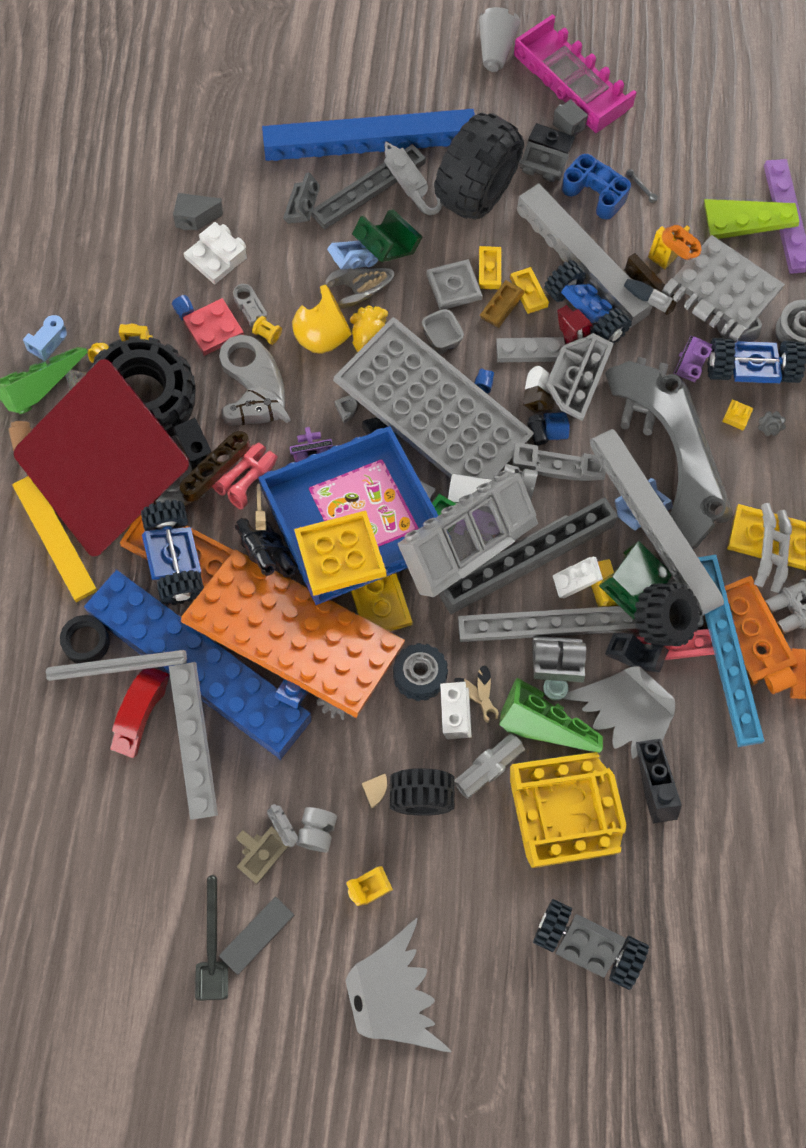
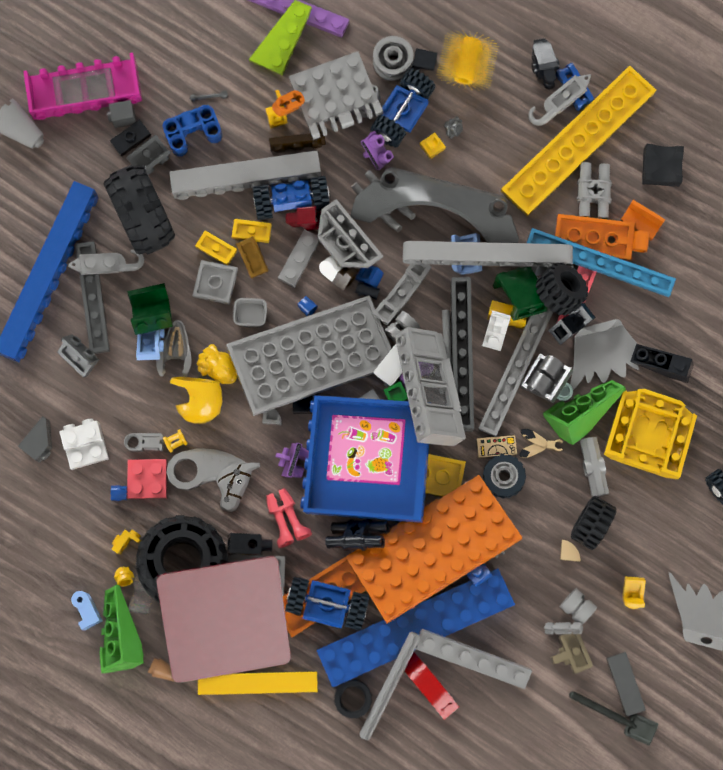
camera: 55 degrees left, 10 degrees up
(218, 467) = (277, 535): dark brown beam -> none
(260, 514) = (334, 526): tan piece -> none
(340, 553) = (401, 485): yellow plate -> none
(447, 643) = (496, 446): none -> tan tile
(455, 710) = (546, 468): white hinge -> none
(647, 293) = (309, 150): piece -> none
(769, 558) = (553, 194): light grey piece -> none

